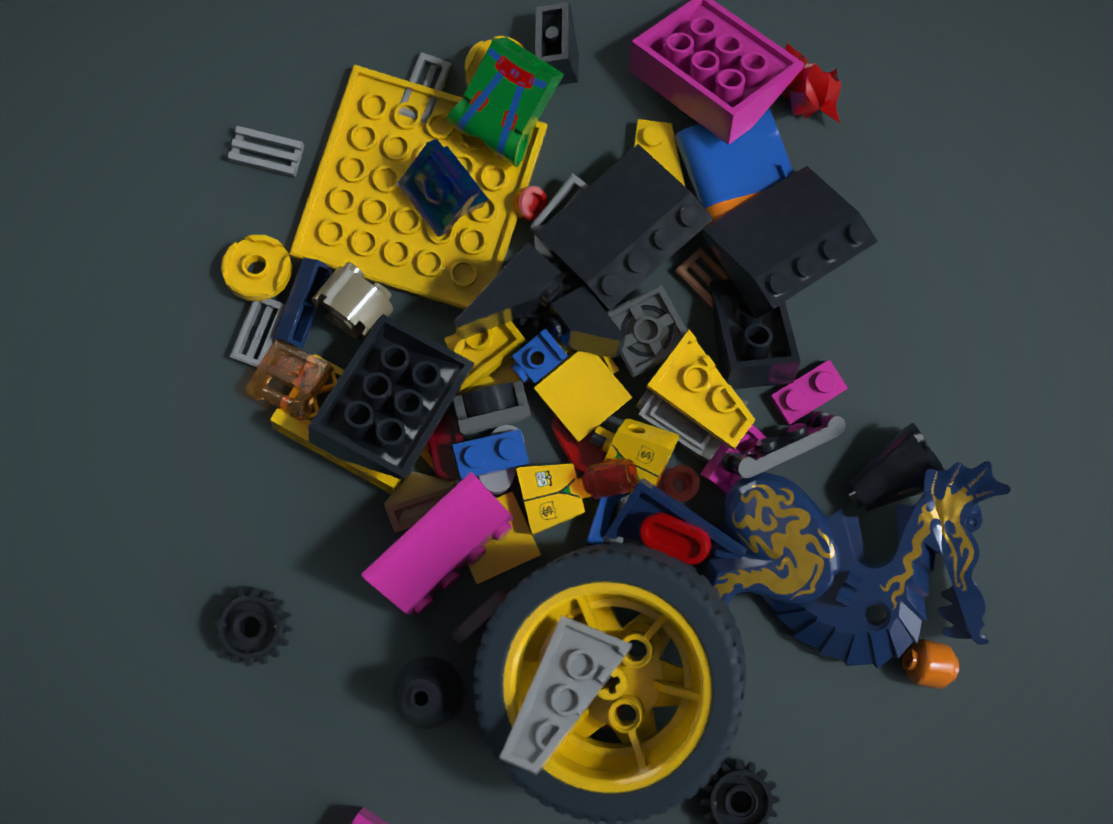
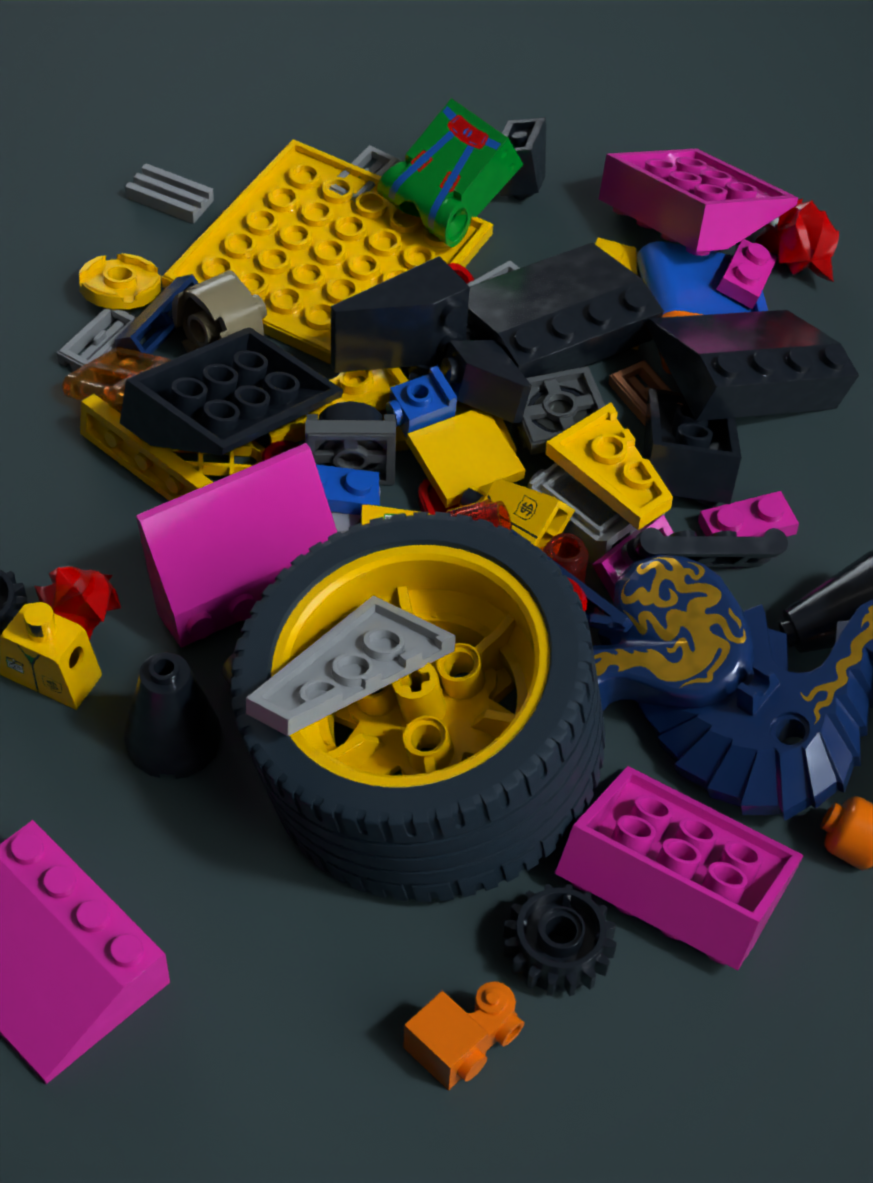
camera: 15 degrees right, 30 degrees down
(322, 661) = (49, 655): none -> yellow torso
(328, 611) = (80, 596): none -> red hair
(441, 187) = (355, 236): clear blue bracket -> none
(769, 138) = (747, 273): none -> dark pink plate
(813, 718) = (678, 866): none -> dark pink slope

